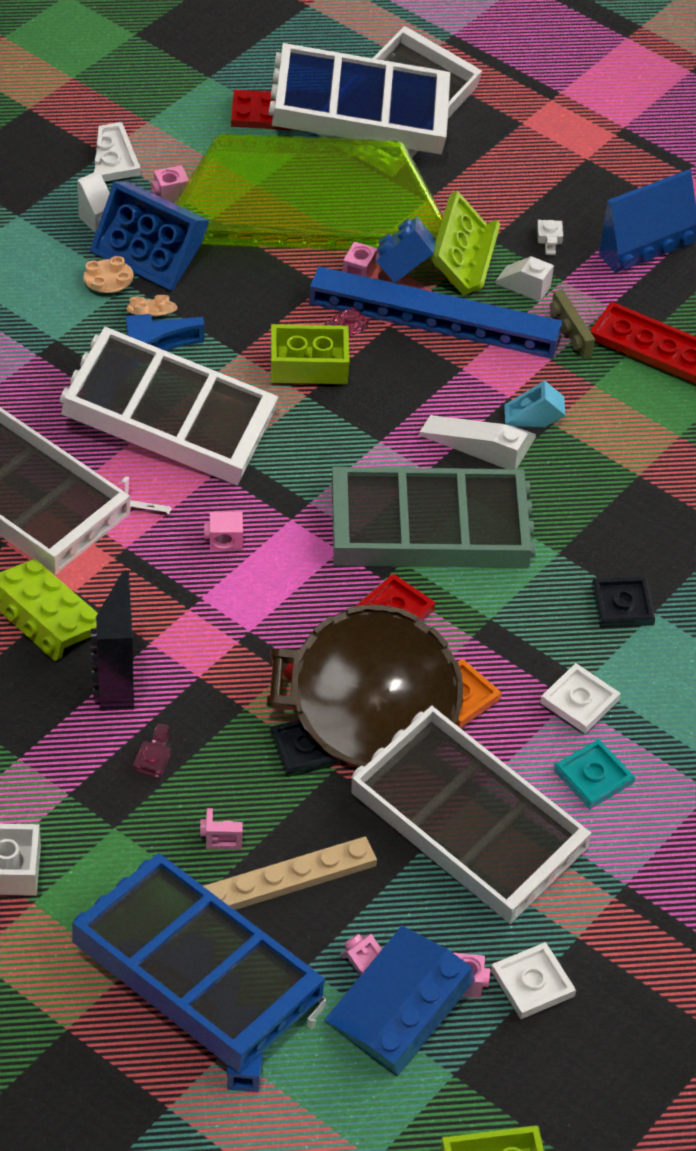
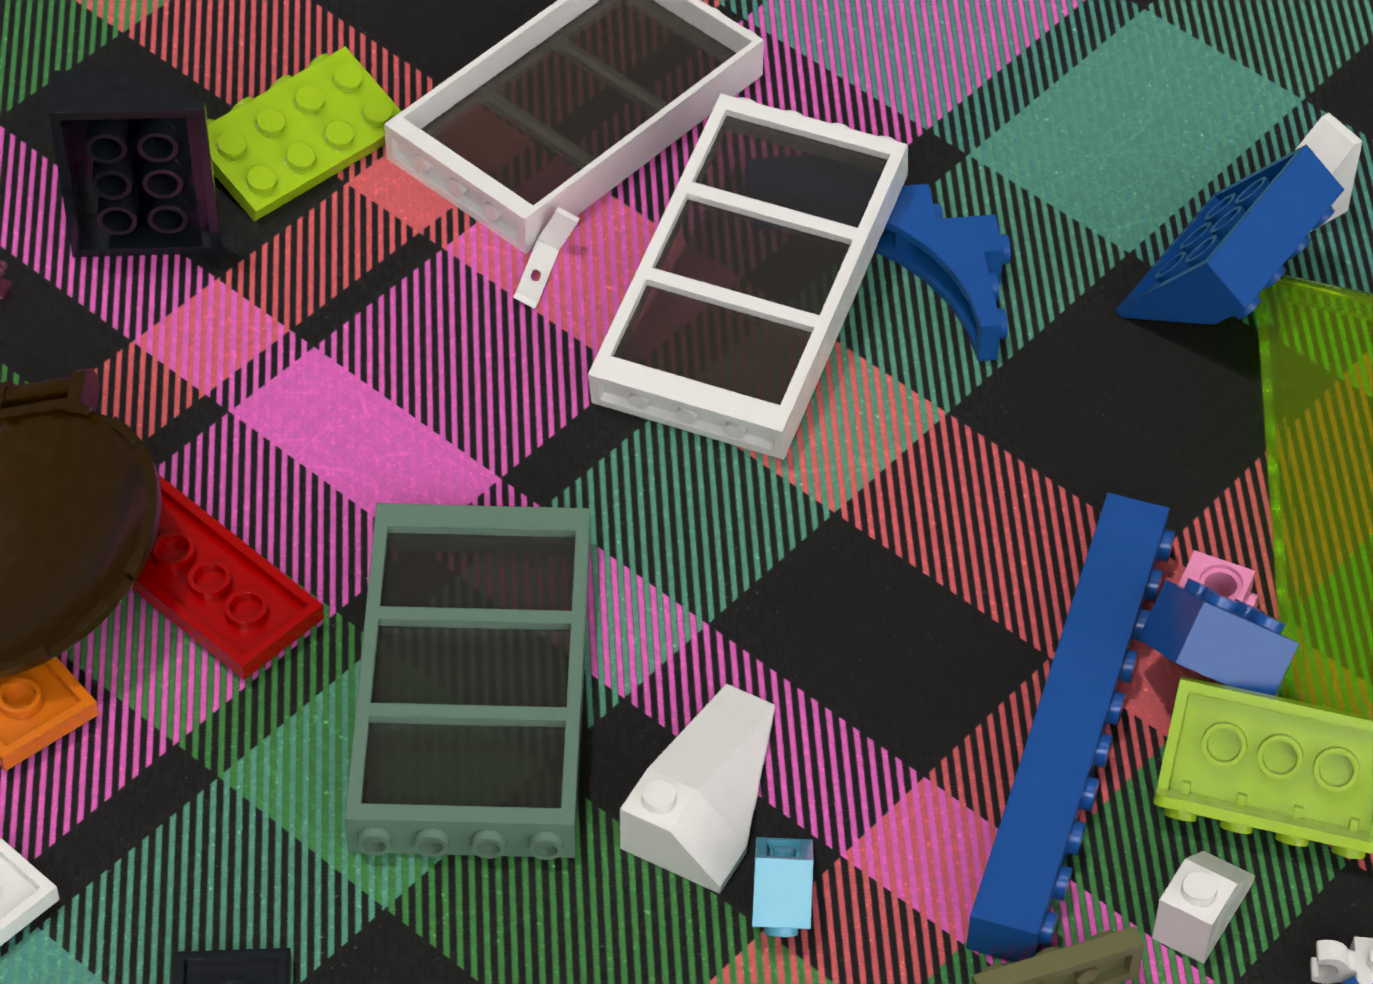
camera: 95 degrees right, 0 degrees up
(108, 275) = (1136, 212): light nougat dish -> none
(156, 307) = (1046, 267): light nougat dish -> none
(225, 531) = (453, 365): bright pink brick -> none
(309, 354) = (915, 492): lime brick -> none
(351, 318) = (1035, 579): clear pink plate -> none

